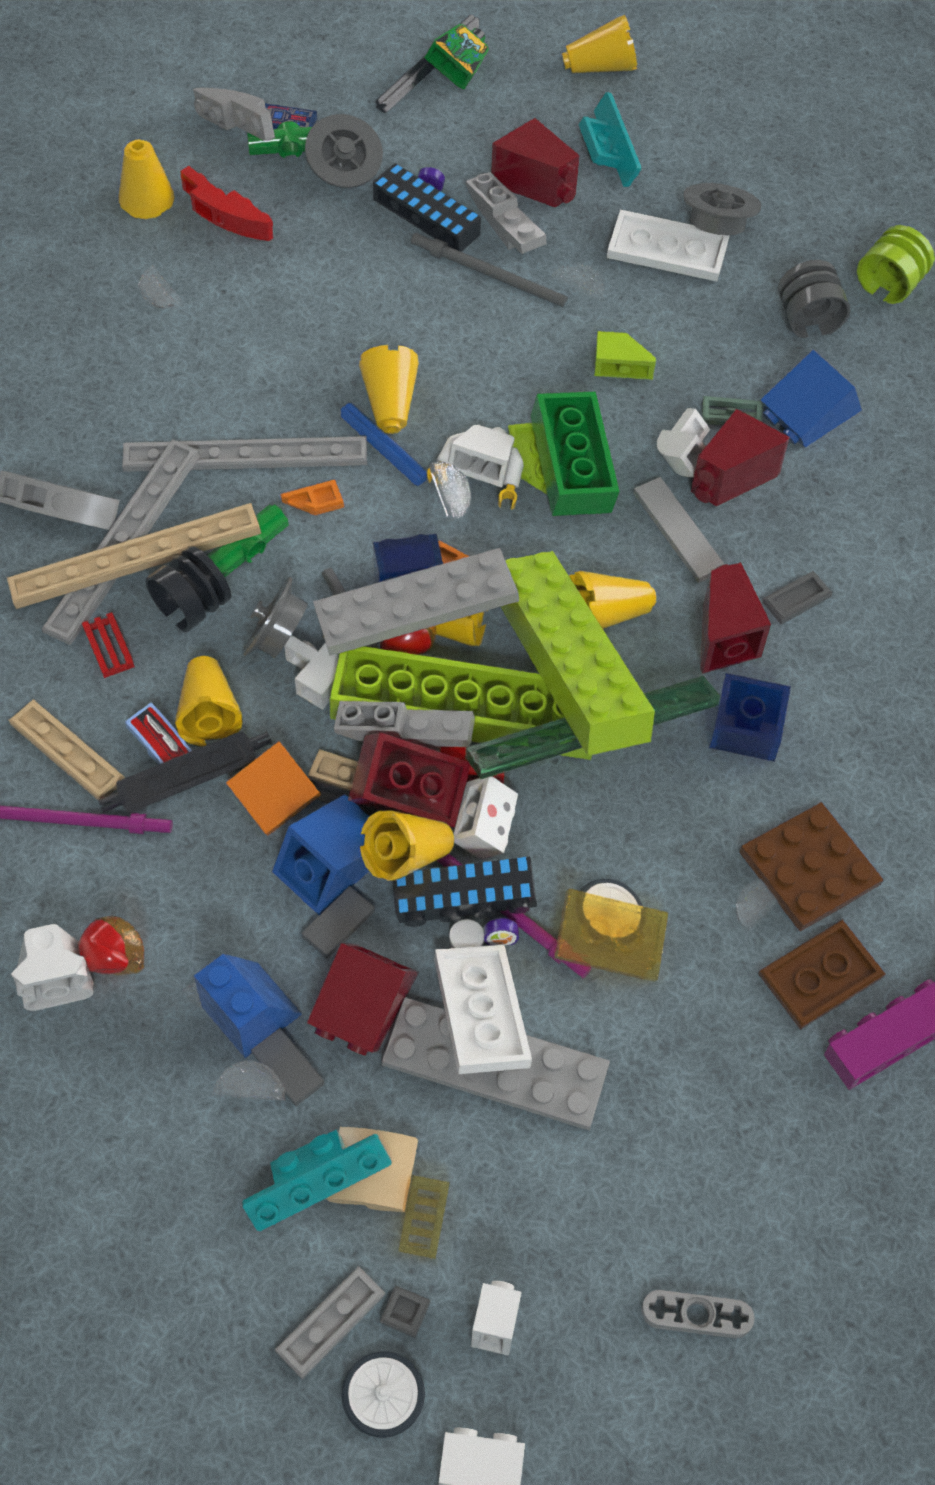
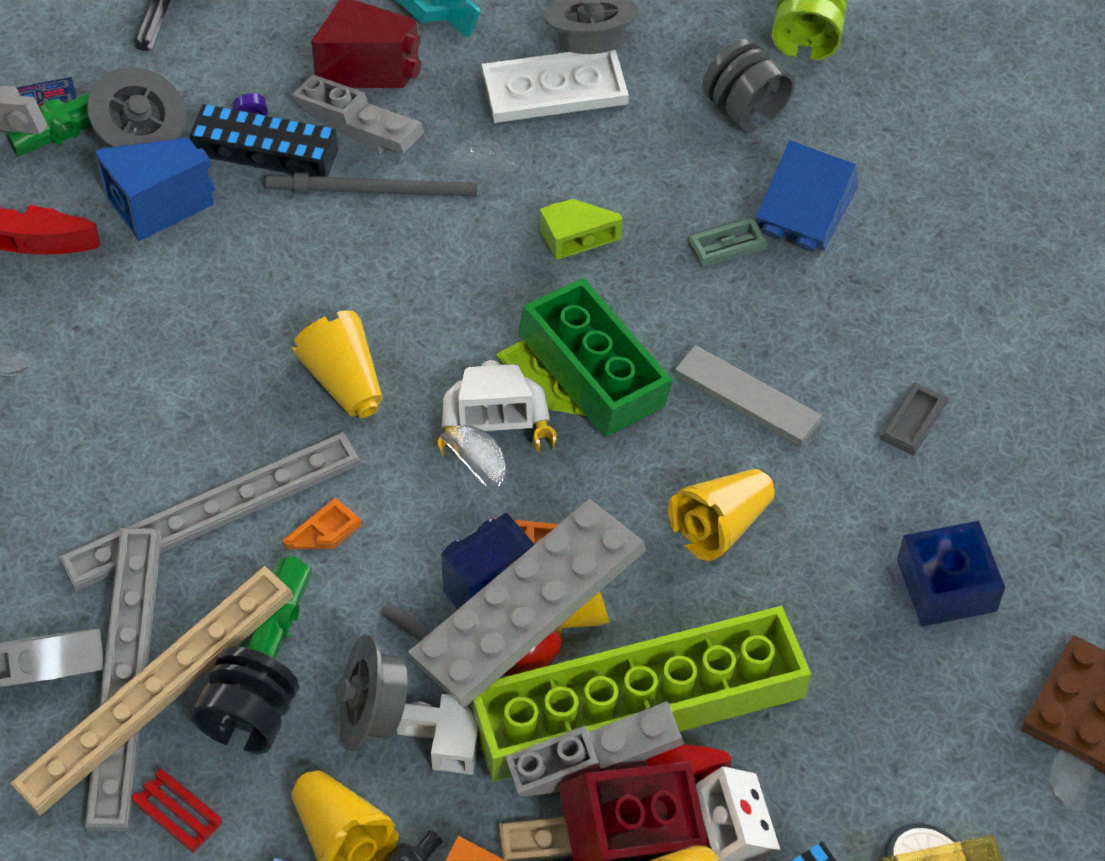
camera: 25 degrees left, 5 degrees down
(330, 208) = (155, 183): none -> blue slope
(384, 444) = (367, 432): blue axle -> none
(558, 738) = (802, 663): clear green plate -> none
(576, 657) = (746, 590): lime brick -> none
(684, 442) = (705, 300): white brick -> none
(732, 621) = (868, 472): dark red slope -> none
(738, 459) = (775, 290): dark red slope -> none

